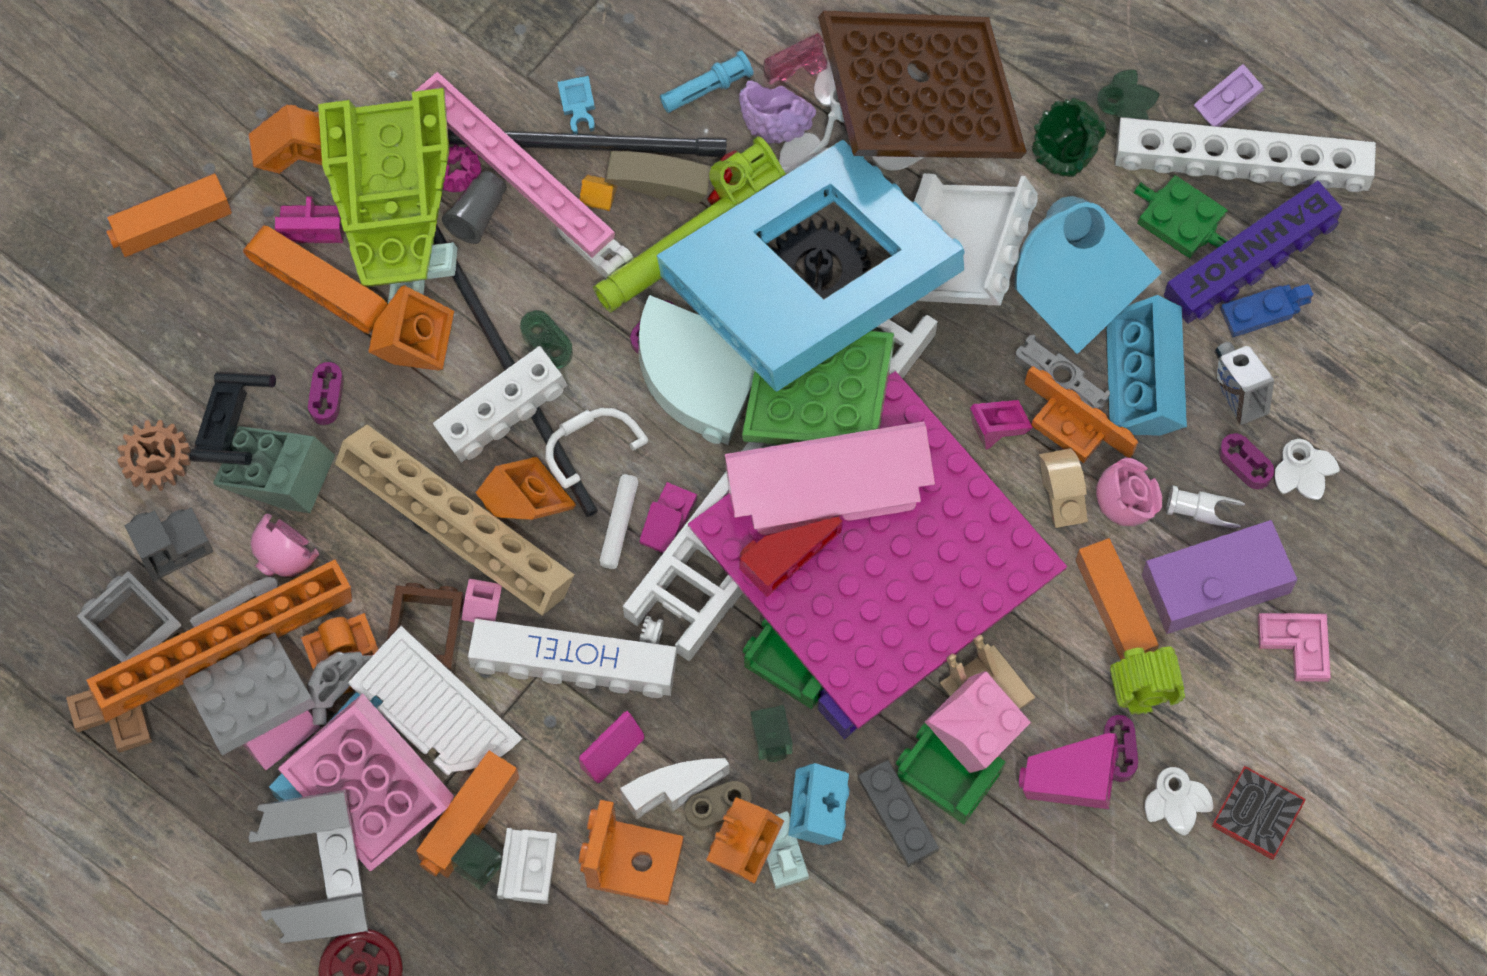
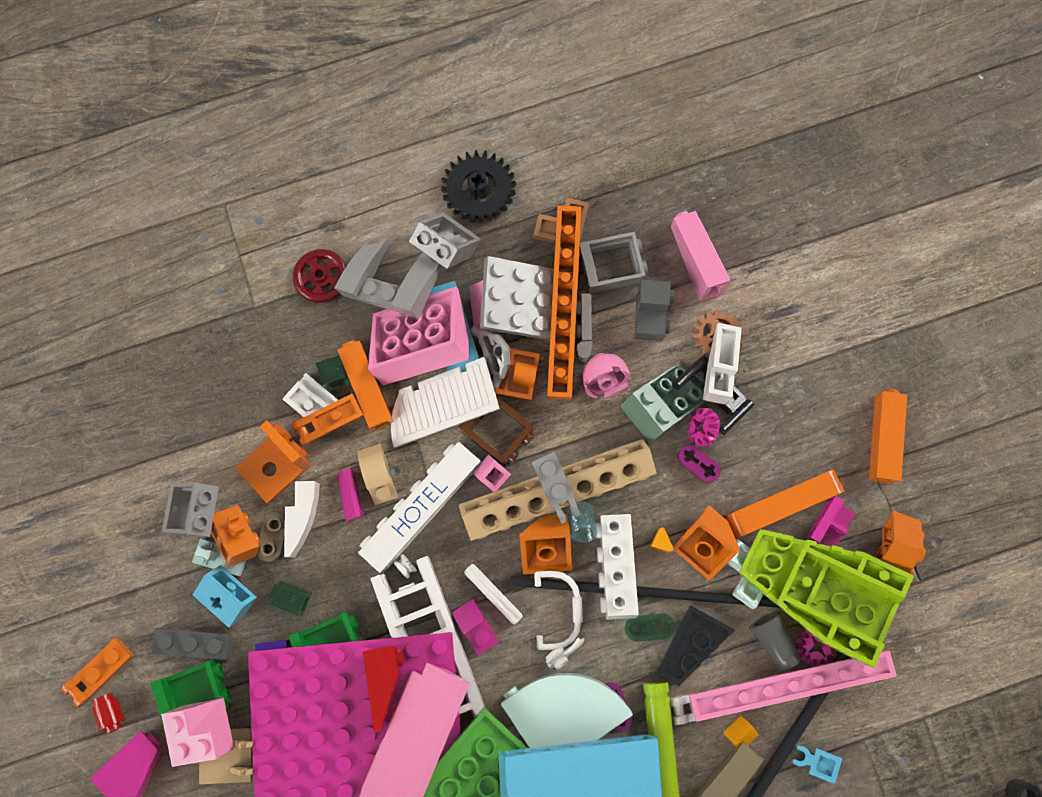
camera: 125 degrees right, 10 degrees up
(63, 528) = (699, 256): none -> bright pink slope
(89, 862) = (475, 168): none -> black gear
(190, 422) = (722, 364): none -> white slope
(223, 839) = (450, 248): none -> light grey window
(275, 395) = (711, 427): none -> dark pink gear
(441, 380) = (661, 541): none -> light orange slope
(450, 511) = (554, 483): none -> light grey hinge
(473, 470) = (583, 526): none -> clear light blue piece
(532, 287) = (692, 644): none -> black wing
(537, 822) = (328, 419): none -> orange plate
(563, 729) = (376, 474): none -> tan brick
(639, 408) = (558, 656): none -> white plate
(772, 923) = (185, 519): none -> light grey window
(1001, 896) = (98, 672): none -> orange plate
(1034, 848) = (107, 713): none -> red brick

